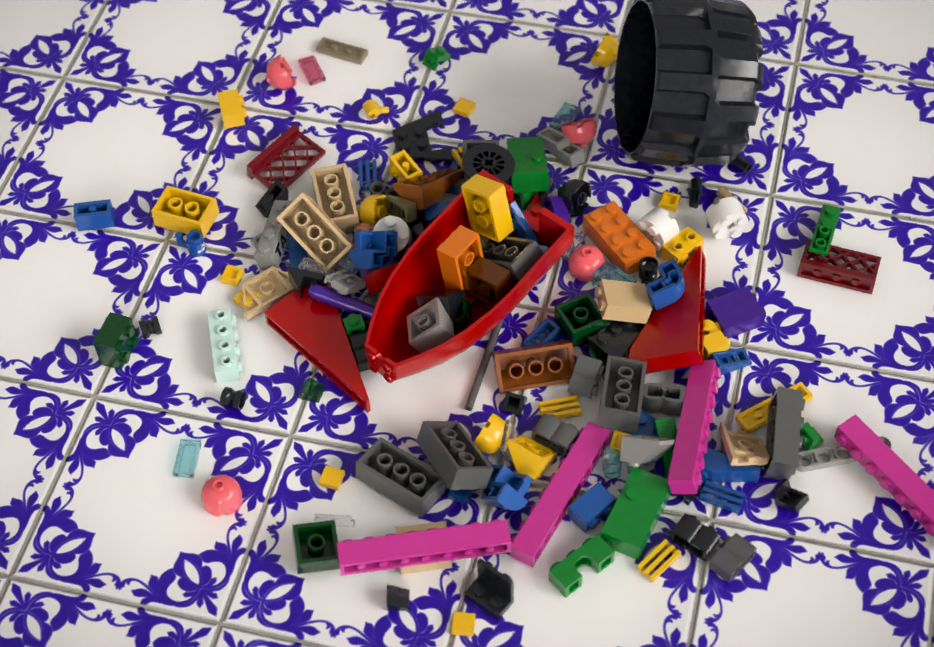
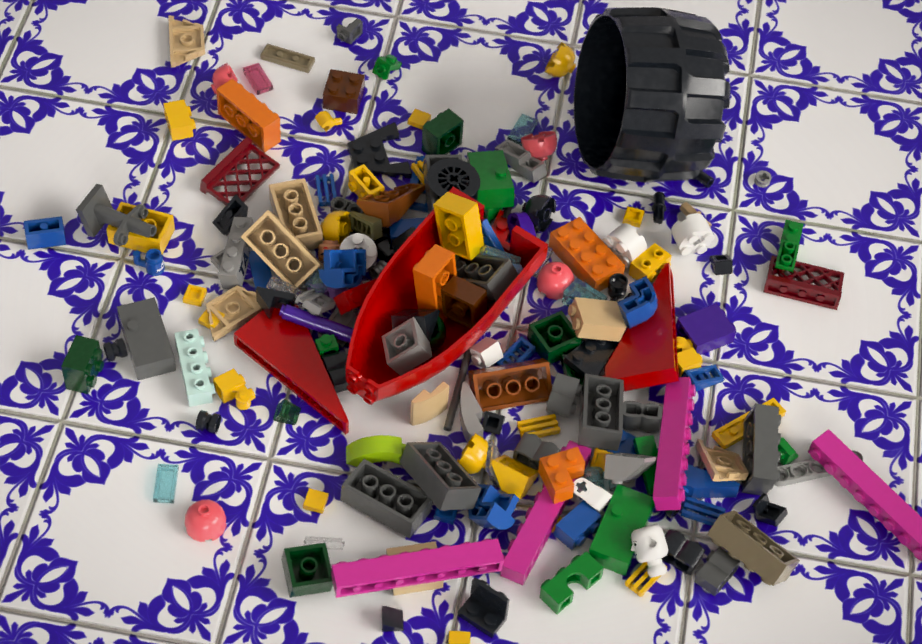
camera: 10 degrees left, 0 degrees up
(143, 194) = (97, 211): none -> dark grey piece
(180, 317) = (146, 338): none -> dark grey brick
(245, 35) = (185, 41): none -> tan wing
(258, 364) = (231, 386): none -> yellow brick
(298, 103) = (248, 115): none -> orange brick
(392, 81) = (343, 91): none -> reddish brown brick
(393, 428) = (375, 449): none -> lime arch
(403, 26) = (351, 32): none -> dark grey bracket
(450, 385) = (429, 405): none -> tan slope
(484, 120) = (442, 133): none -> dark green brick
(491, 393) = (470, 413): none -> light grey slope
(511, 333) = (486, 352): none -> white brick
(518, 233) = (490, 251): none -> clear light blue tile
(574, 452) = (559, 471): none -> orange brick
(609, 477) = (594, 496): none -> white piece
(663, 531) = (650, 547): none -> white piece
(755, 248) = (721, 264): none -> black slope
(770, 534) = (753, 548): none -> dark tan brick
(802, 169) = (762, 174): none -> light grey bush

